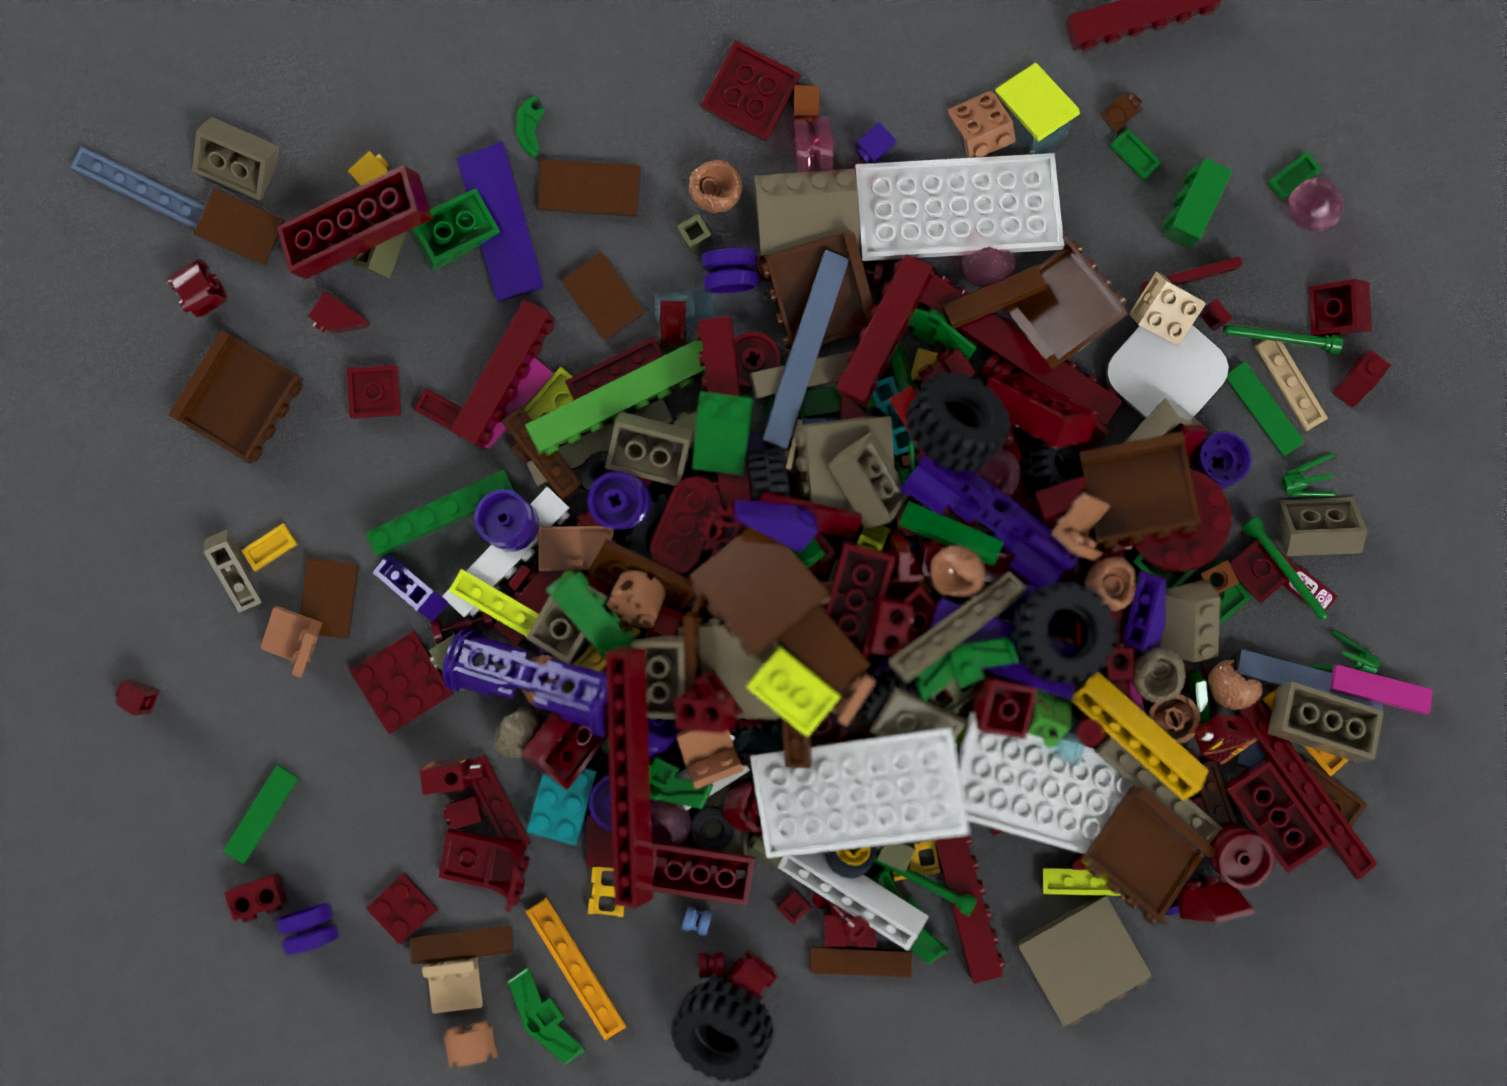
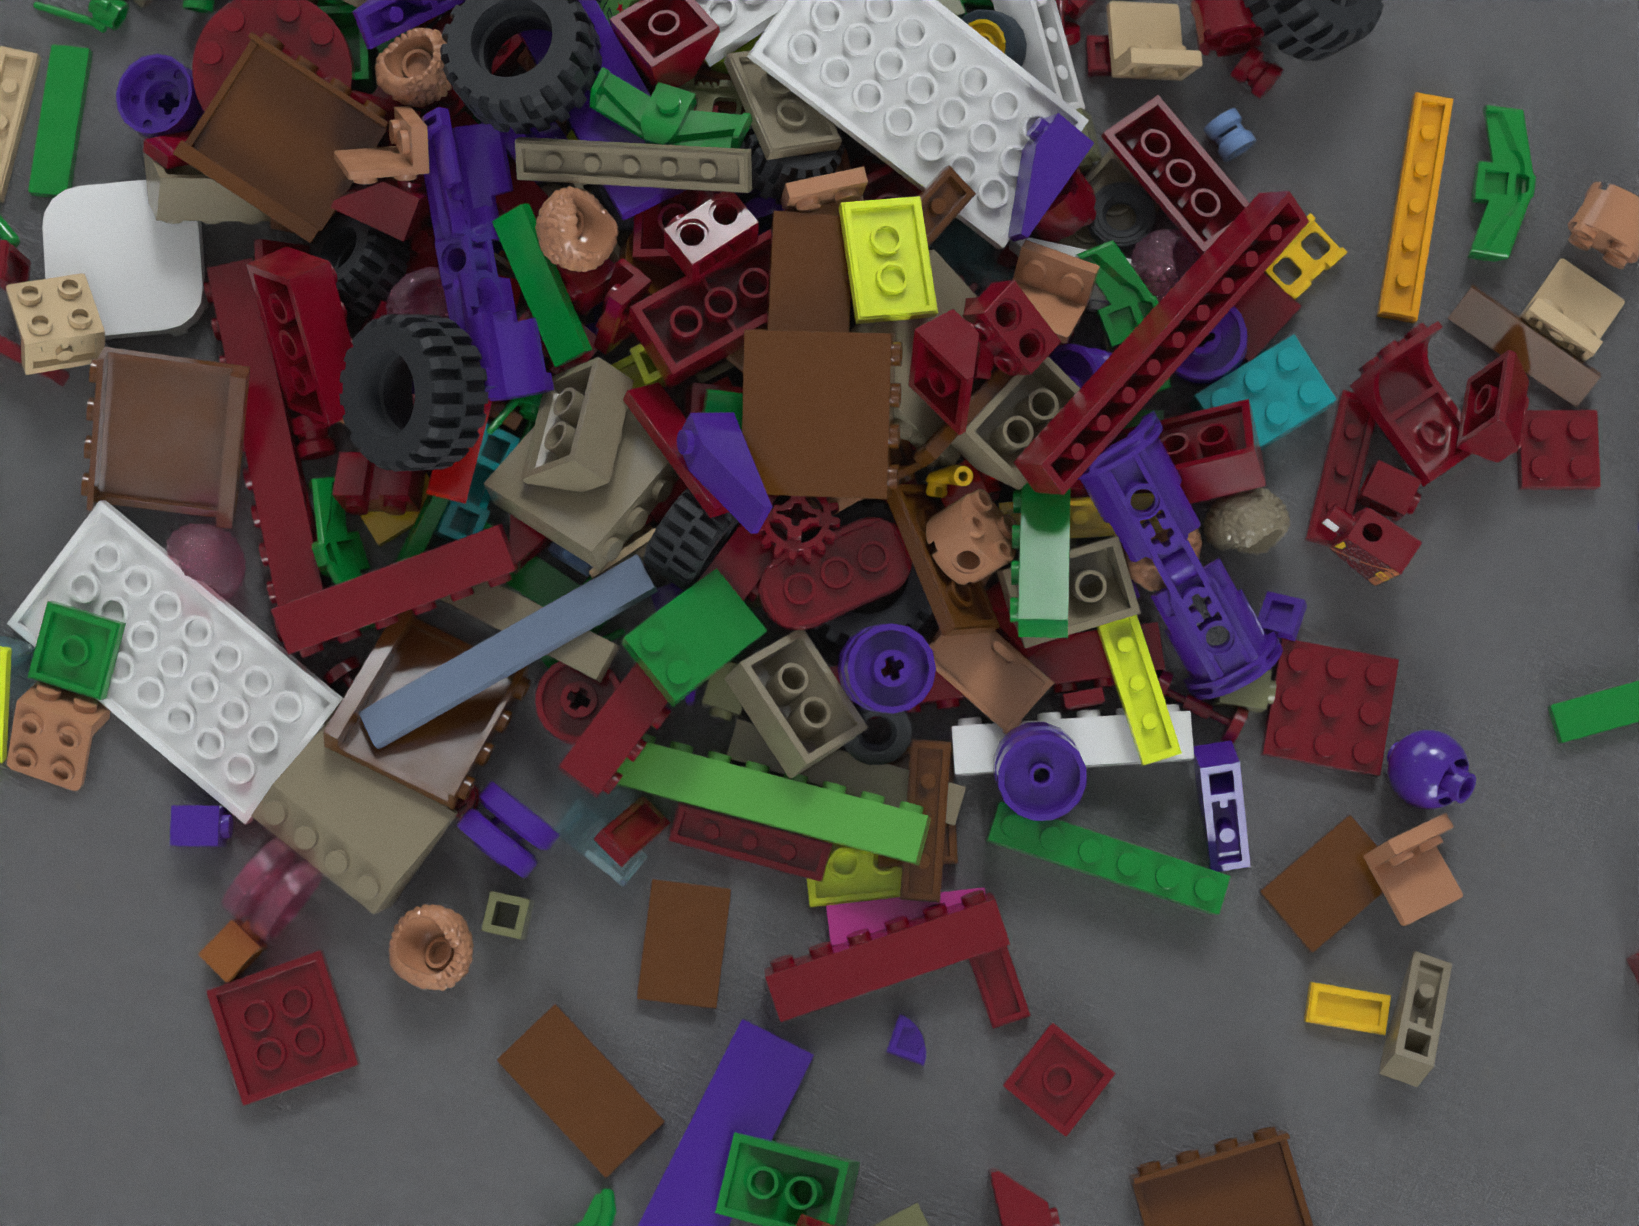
camera: 135 degrees left, 5 degrees down
(326, 692) = (1430, 770): none -> dark purple brick
(447, 896) = (1495, 409): none -> dark red slope
(459, 346) = (907, 1041): none -> dark purple tile
(462, 704) = (1282, 615): none -> dark purple plate
(674, 621) = (951, 475): none -> yellow arm
(718, 663) = (945, 366): none -> dark red slope
(763, 812) = (1044, 169): none -> dark purple slope
(778, 931) = (1148, 42): none -> tan bracket
(995, 297) = (234, 513): reddish brown tile -> none
(1009, 169) = (76, 650): none -> green tile

